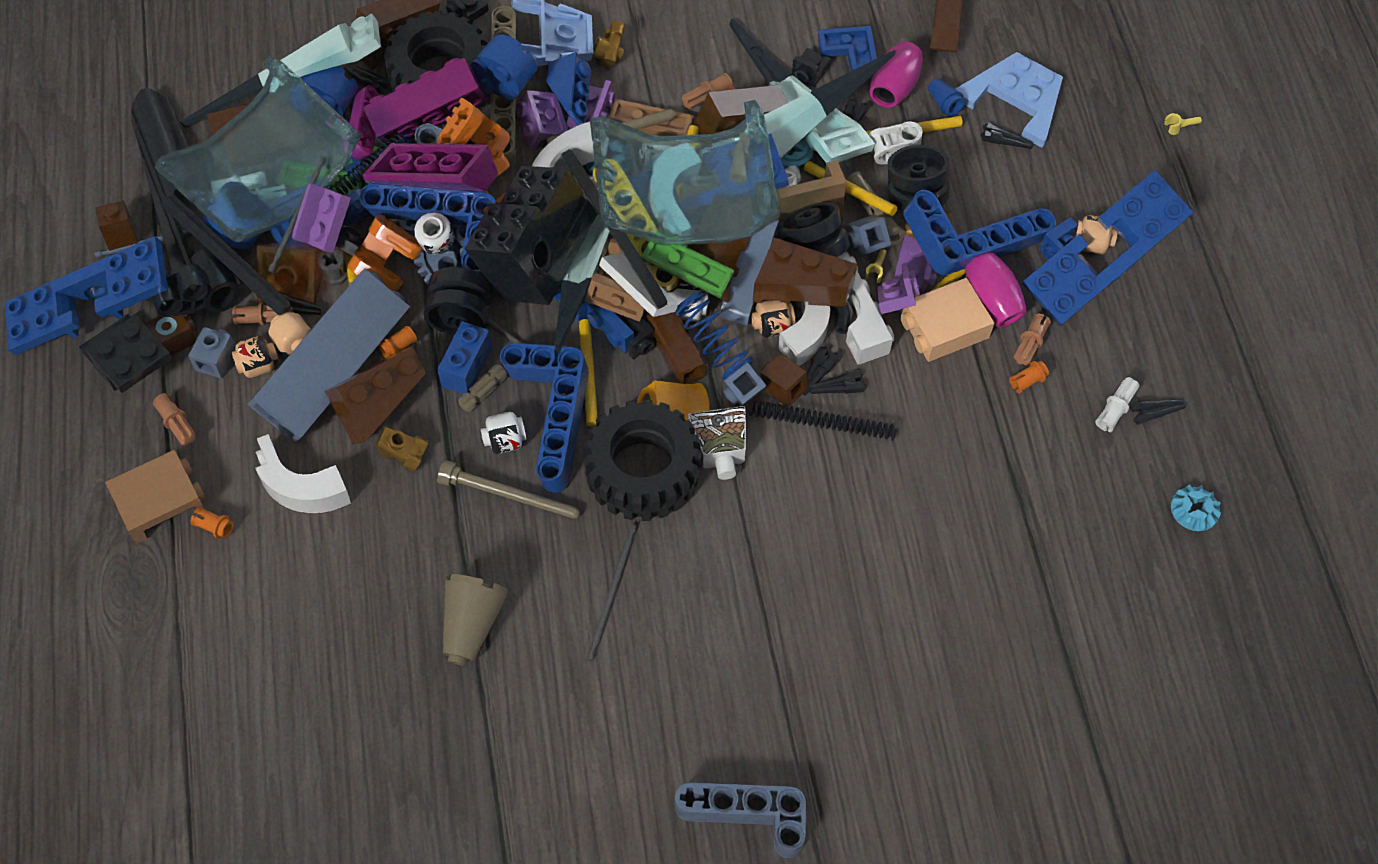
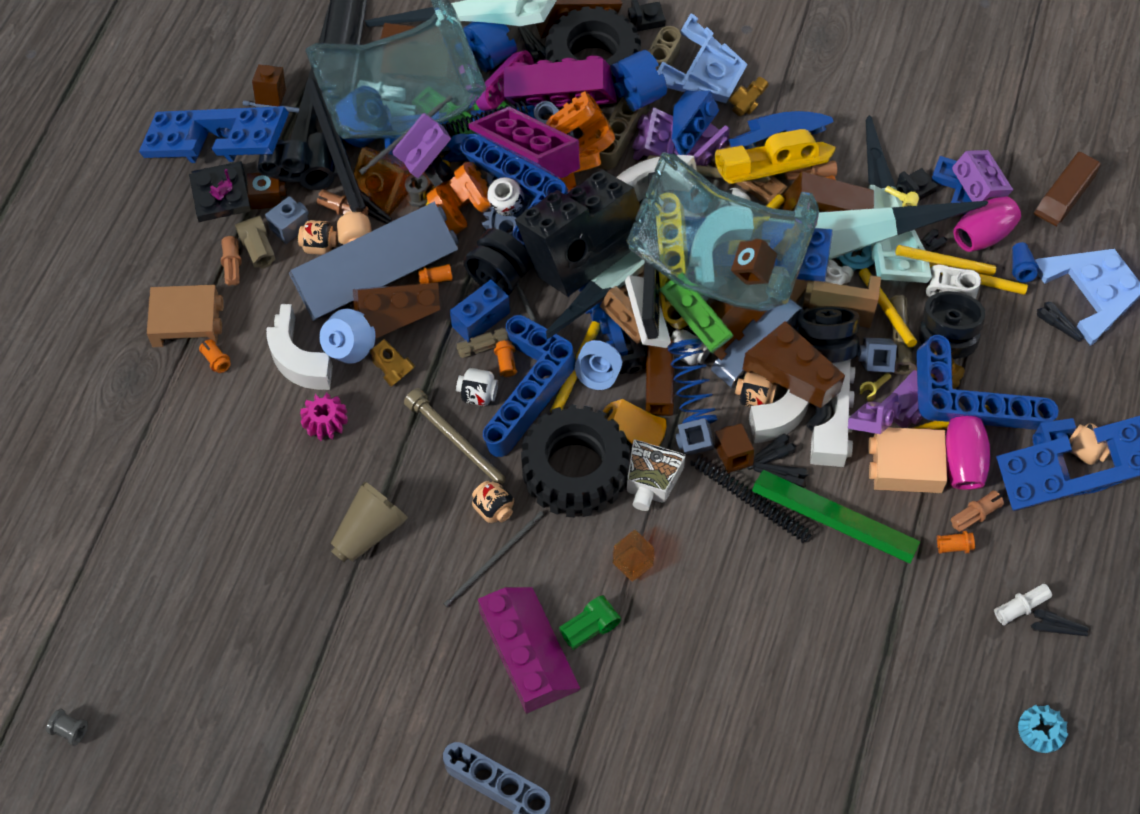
camera: 30 degrees right, 0 degrees up
(133, 346) = (223, 188): none -> magenta piece
(186, 384) = (254, 237): none -> dark tan piece
(348, 439) = (347, 336): none -> light blue cone
(363, 531) = (323, 416): none -> dark pink gear
(512, 389) = (504, 352): none -> orange pin
(582, 537) = (493, 501): none -> head
(613, 358) = (598, 365): none -> light blue piece
(658, 61) = (768, 125): none -> blue slope
(672, 88) = (780, 154): none -> yellow panel
(693, 661) = (527, 647): none -> magenta slope
(724, 191) = (754, 262): none -> reddish brown brick
(744, 601) = (595, 619): none -> green piece
(746, 525) = (633, 555): none -> clear orange panel
(815, 80) = (908, 199): none -> light yellow hand
(867, 33) = (981, 176): none -> medium lavender bracket
(879, 122) = (946, 260): none -> yellow bar
(911, 401) = (836, 516): none -> green tile

